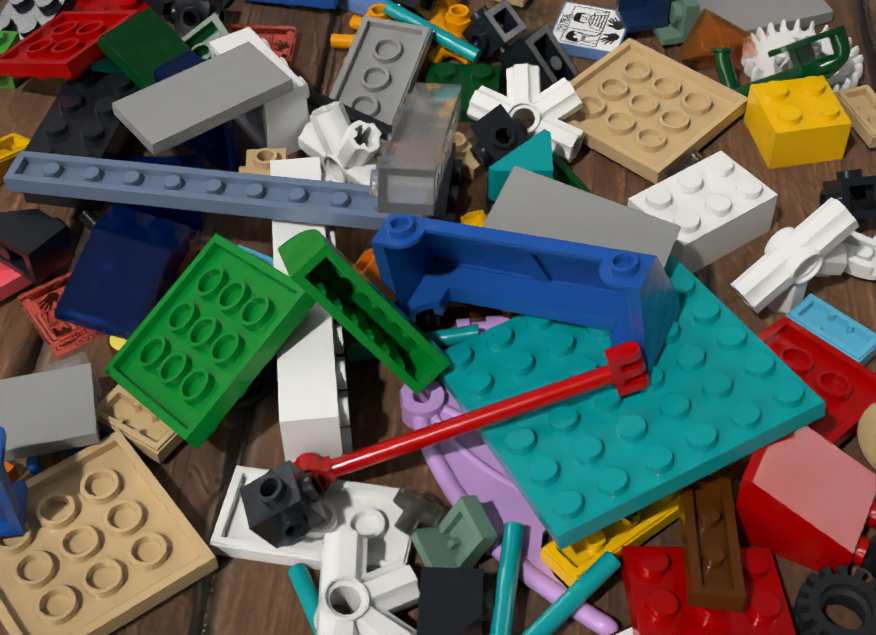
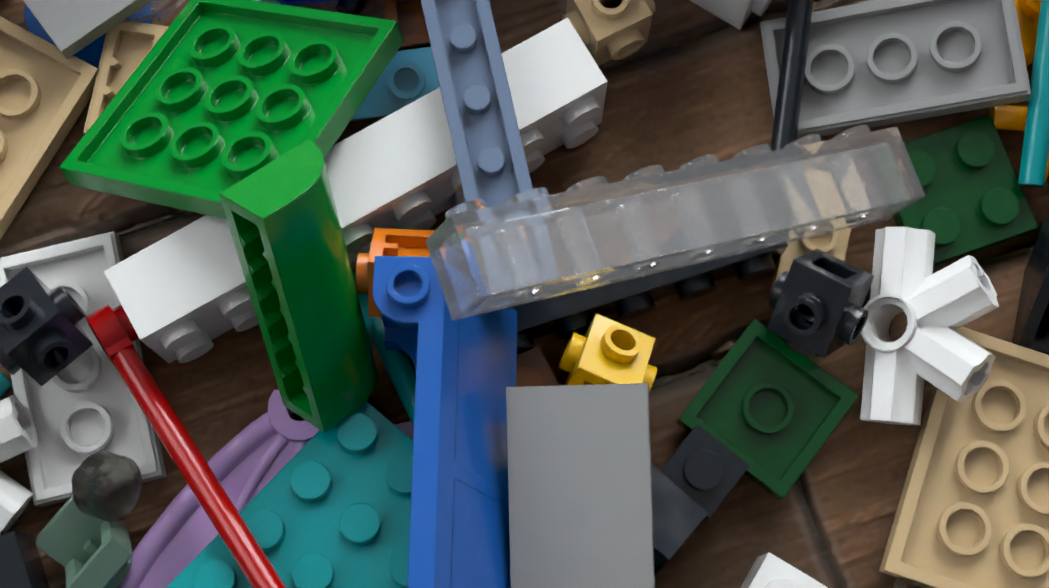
camera: 65 degrees right, 30 degrees up
(343, 147) = (708, 90): white piece -> none
(532, 155) = (767, 379): teal slope -> none

